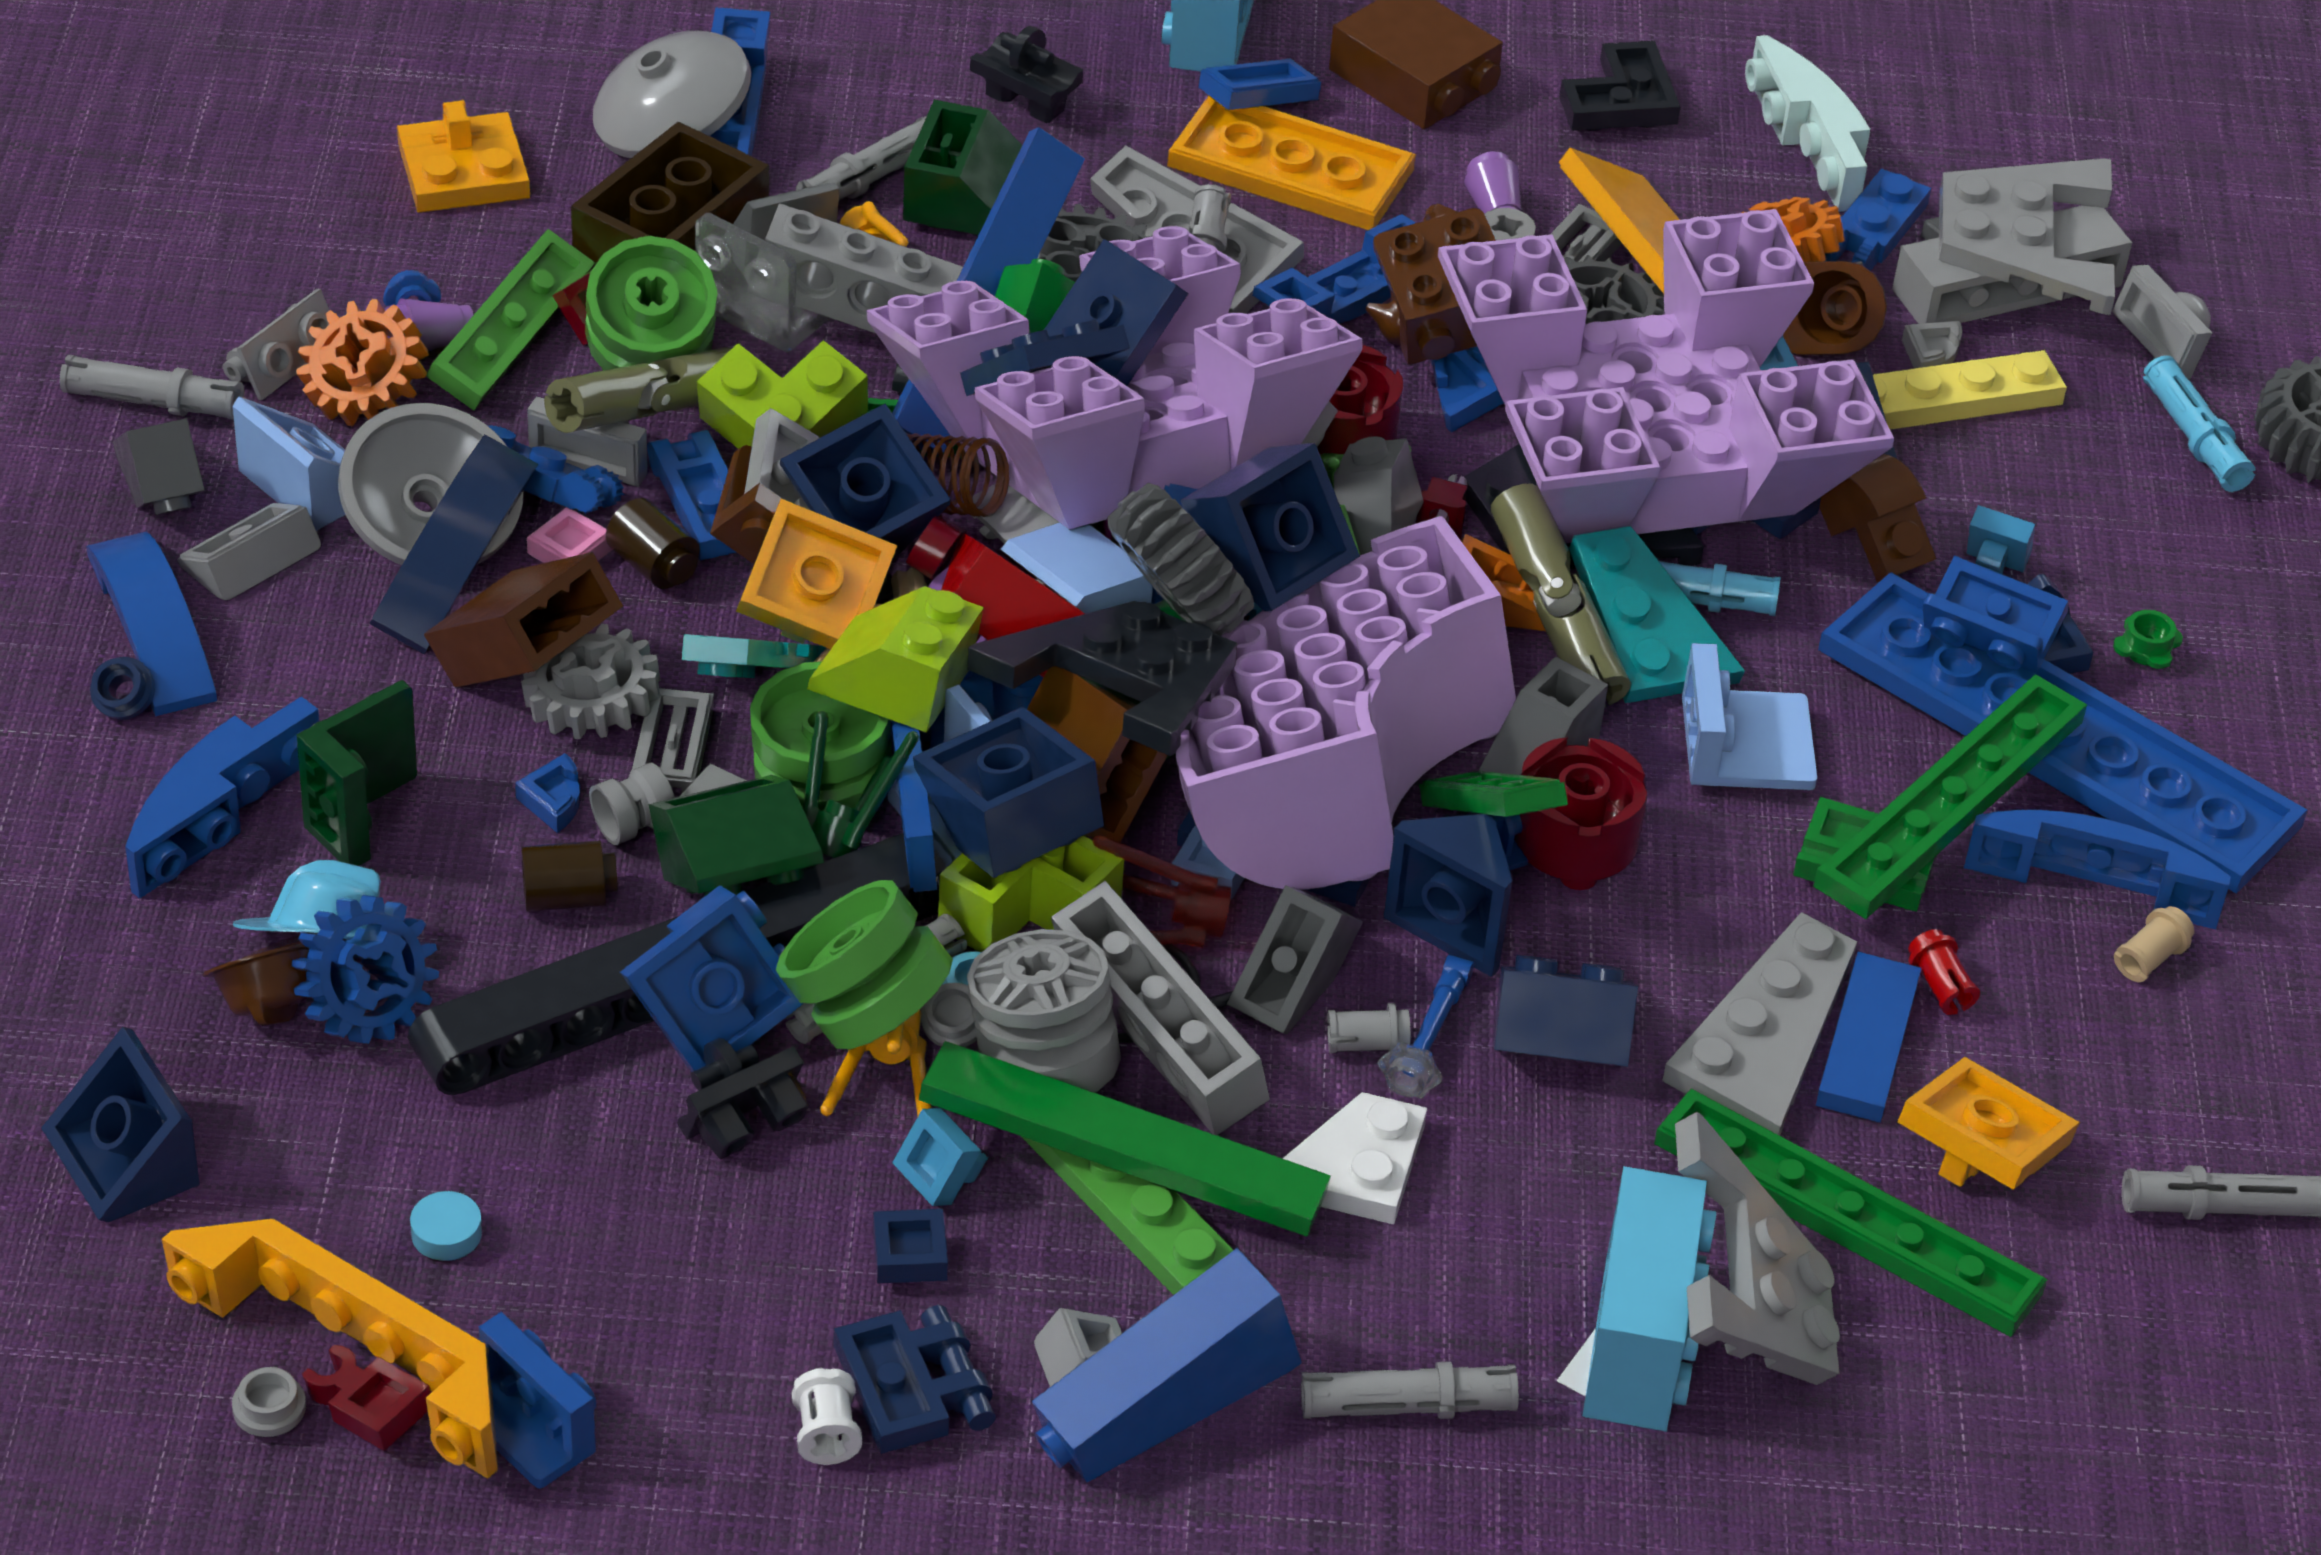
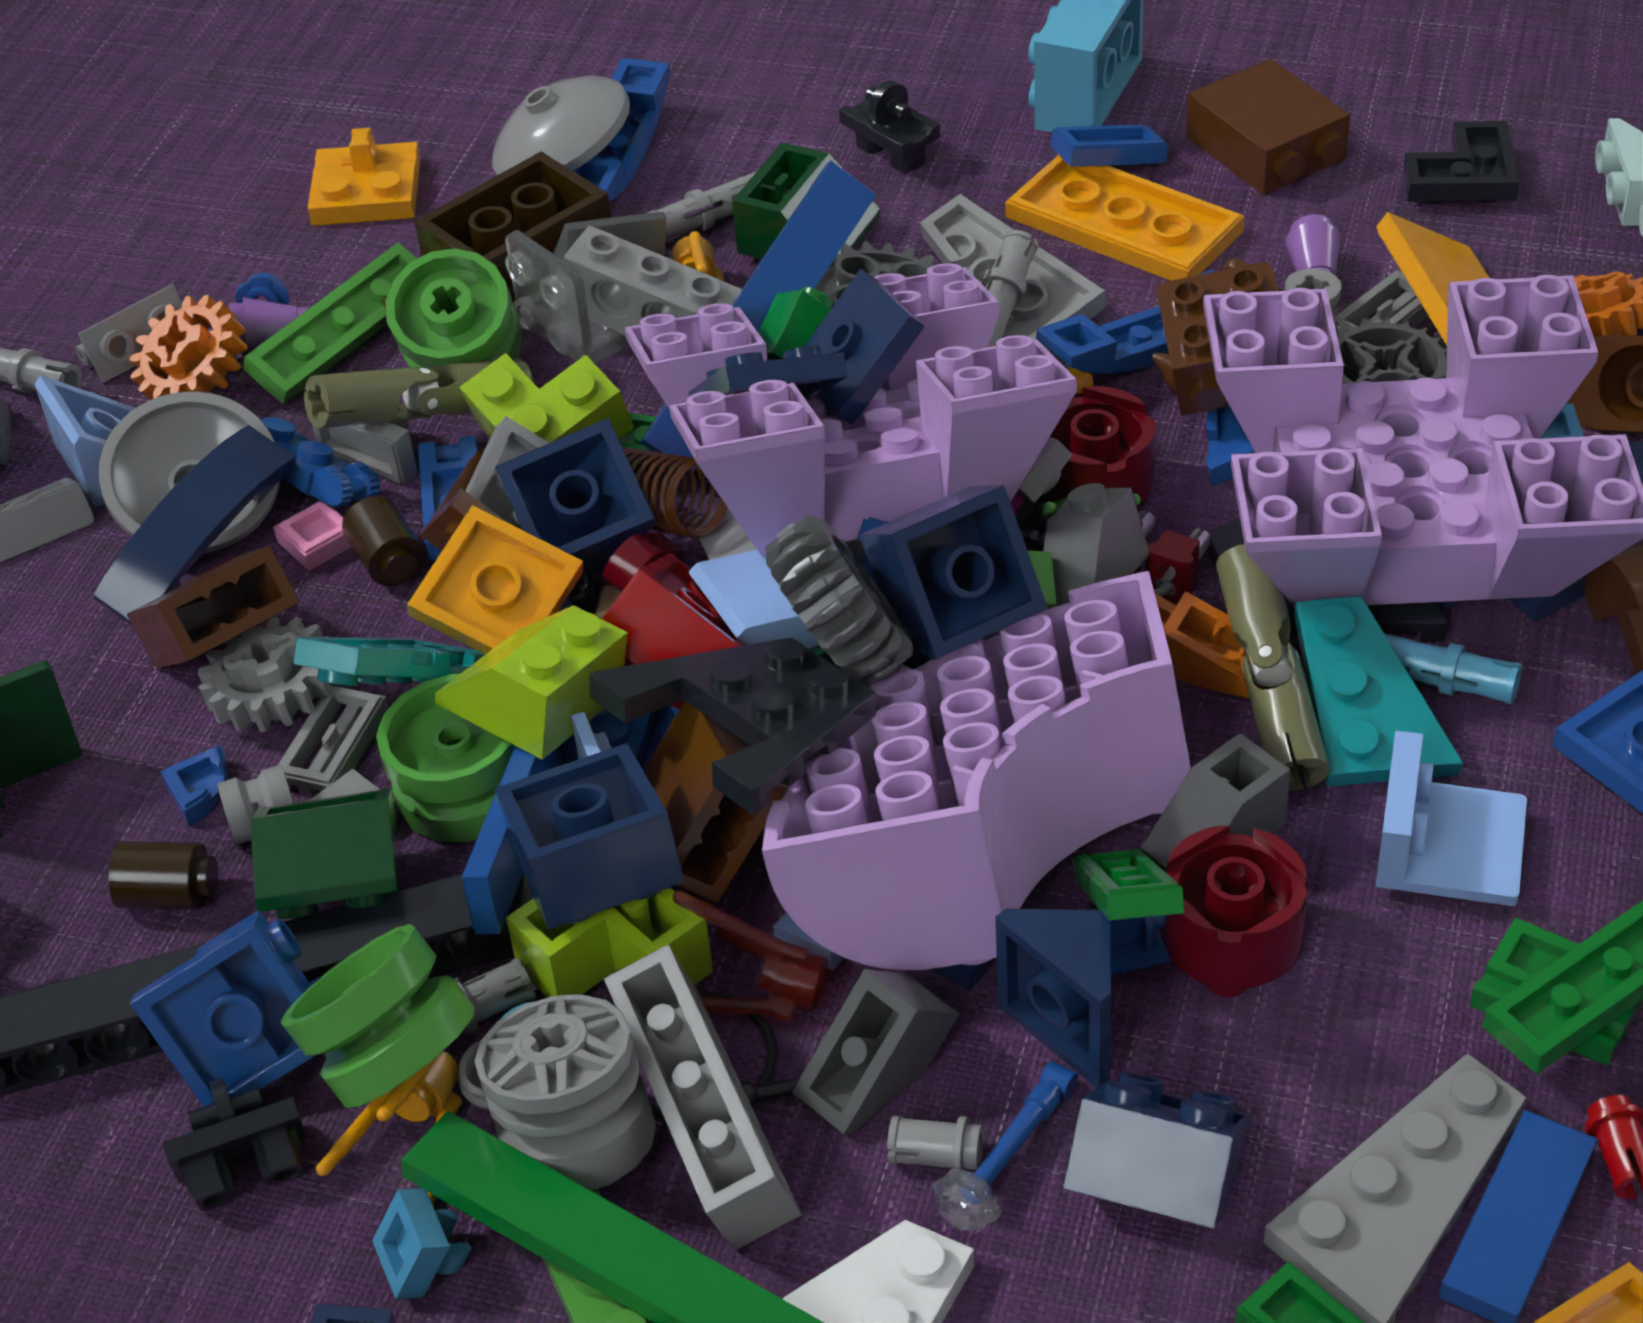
camera: 20 degrees right, 0 degrees up
(838, 825) = (443, 848): dark green plant -> none

